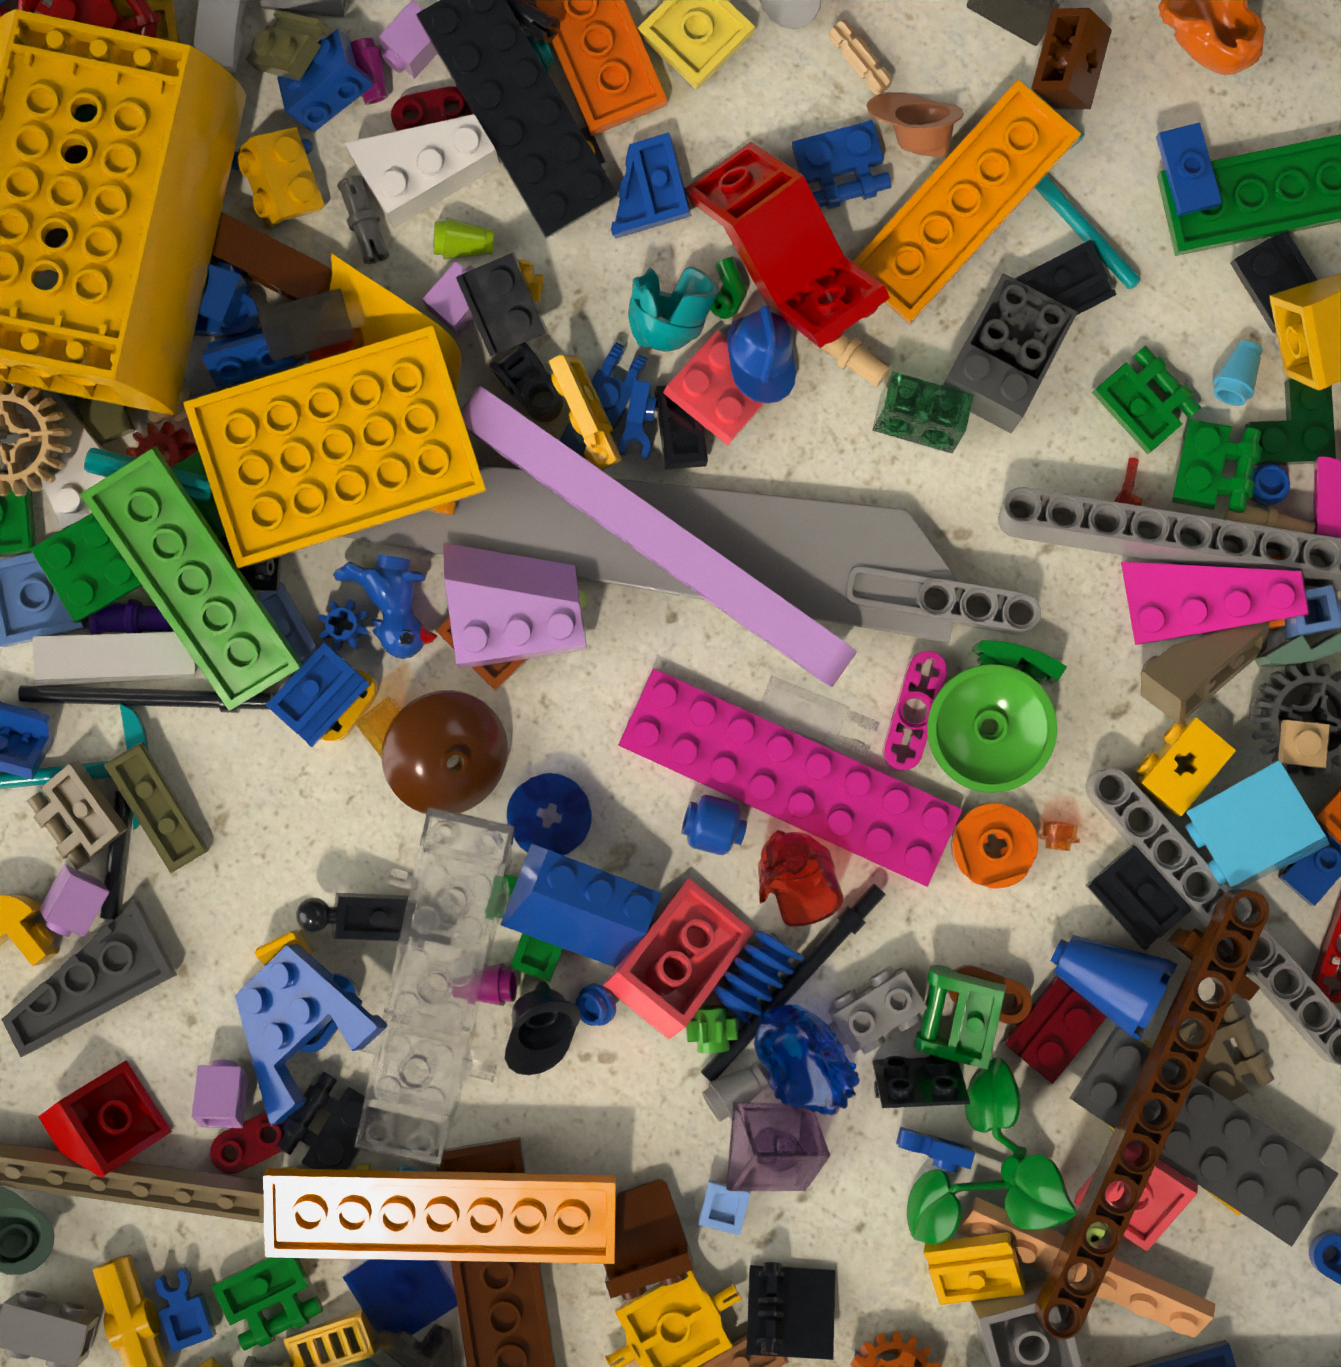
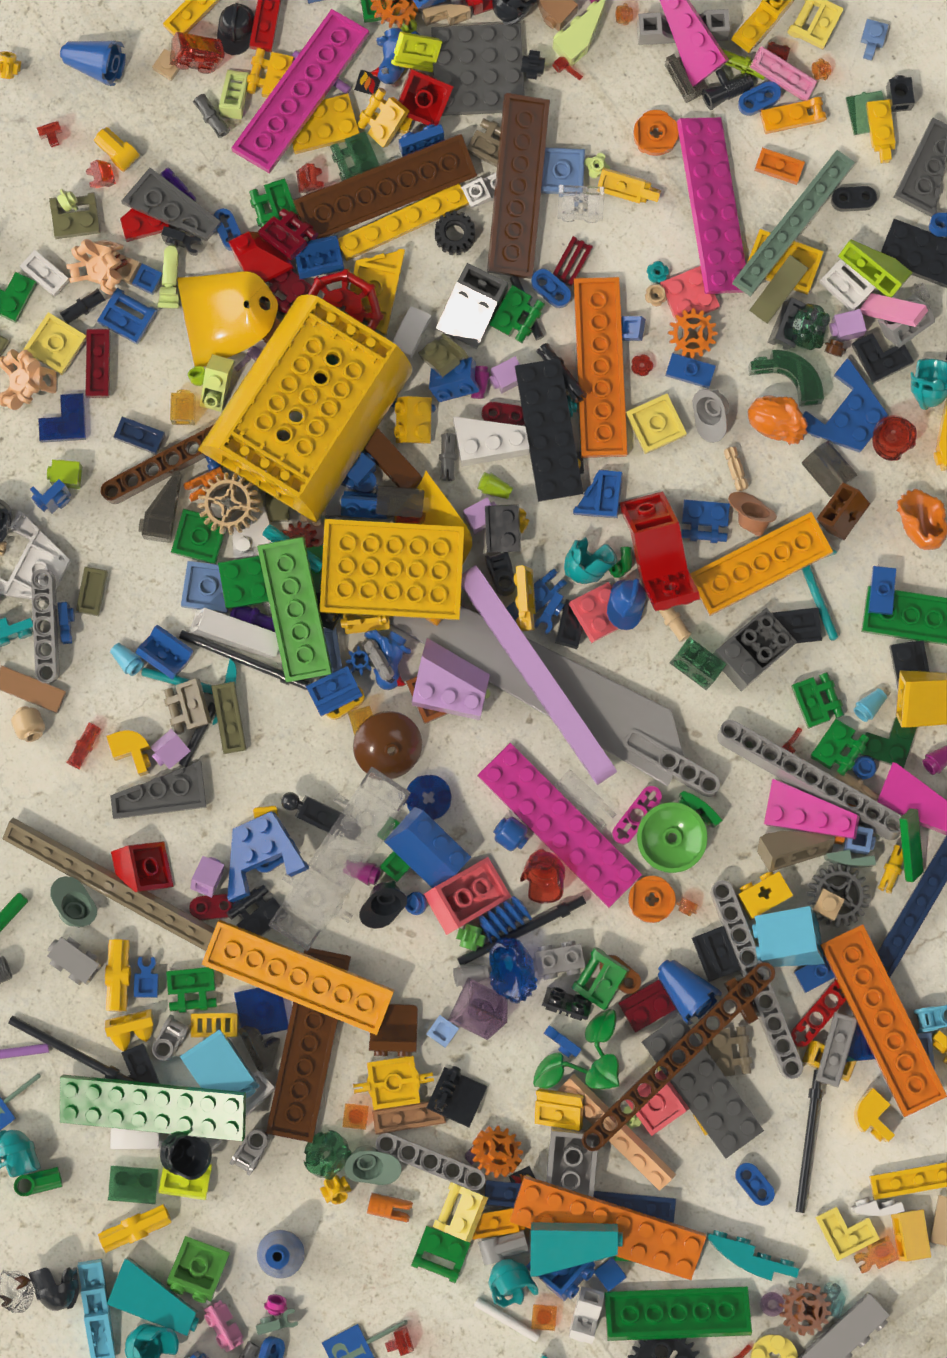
camera: 15 degrees right, 5 degrees down
(323, 559) = (362, 623): none -> yellow hinge
(374, 612) = (379, 660): none -> light grey axle

